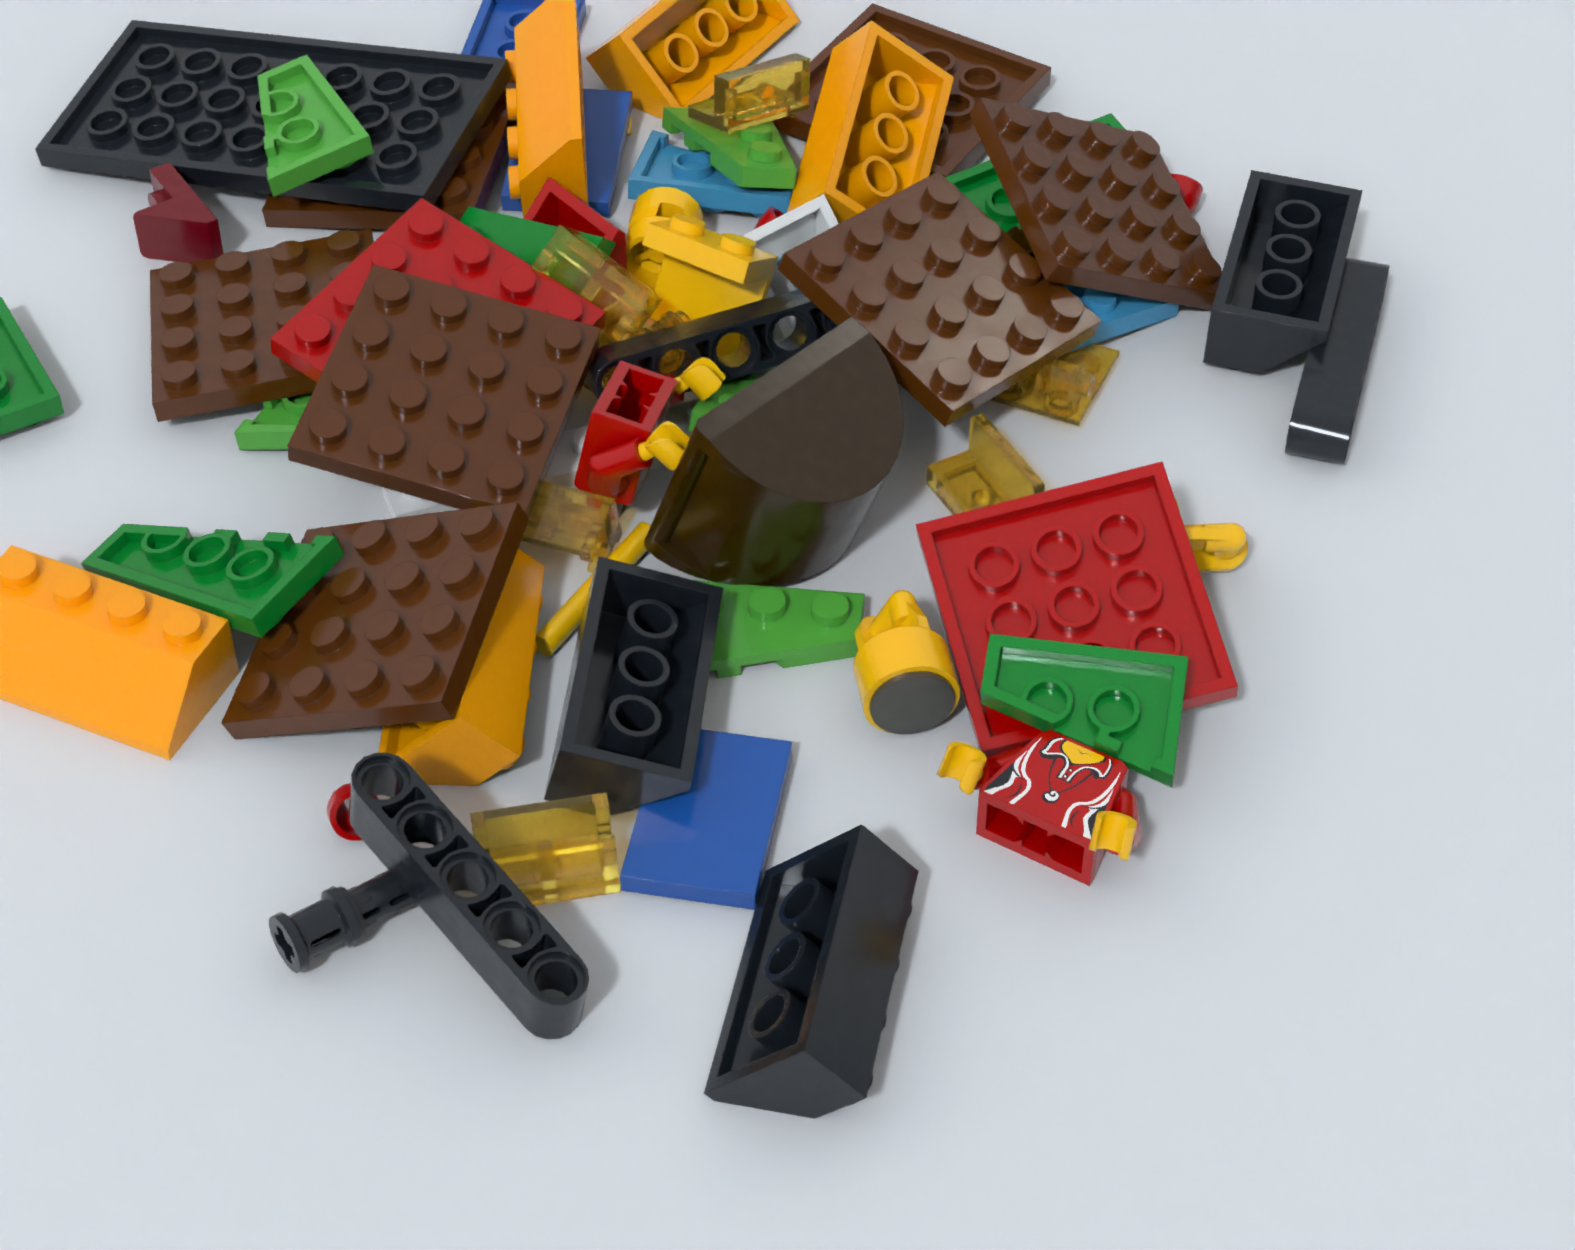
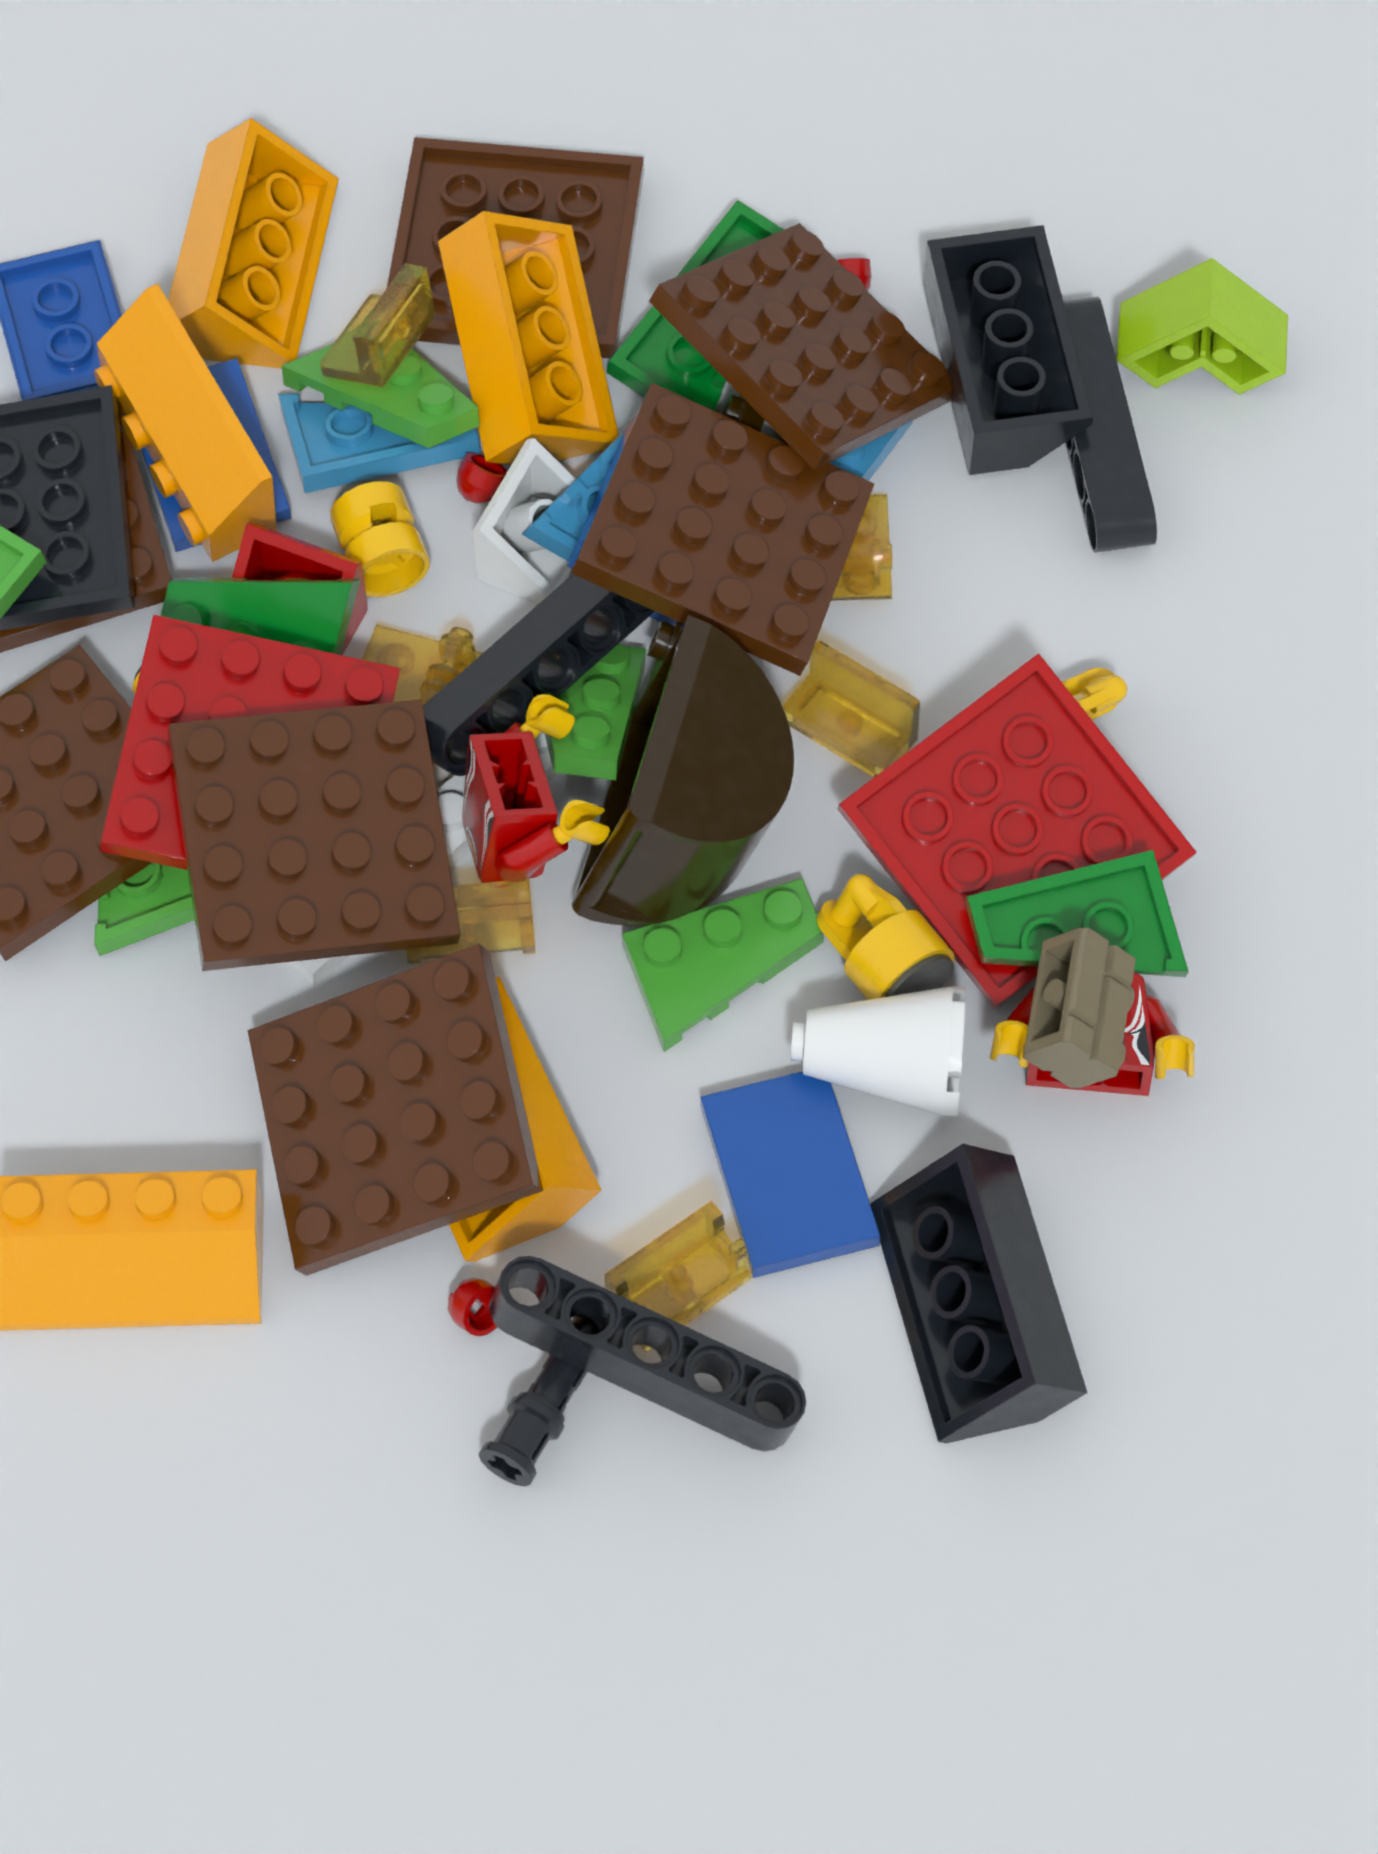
camera: 25 degrees left, 15 degrees up
(219, 572) = (195, 1121): green wing -> none
(570, 614) = (547, 968): yellow bar -> none
(600, 280) = (371, 633): clear yellow hinge -> none
(635, 687) = (663, 1076): black slope -> none
(707, 271) = (469, 583): yellow bracket -> none
(857, 739) = (889, 1047): none -> white cone
(1040, 755) = (1080, 1008): none -> dark tan brick
(1480, 305) = (1204, 322): none -> lime brick

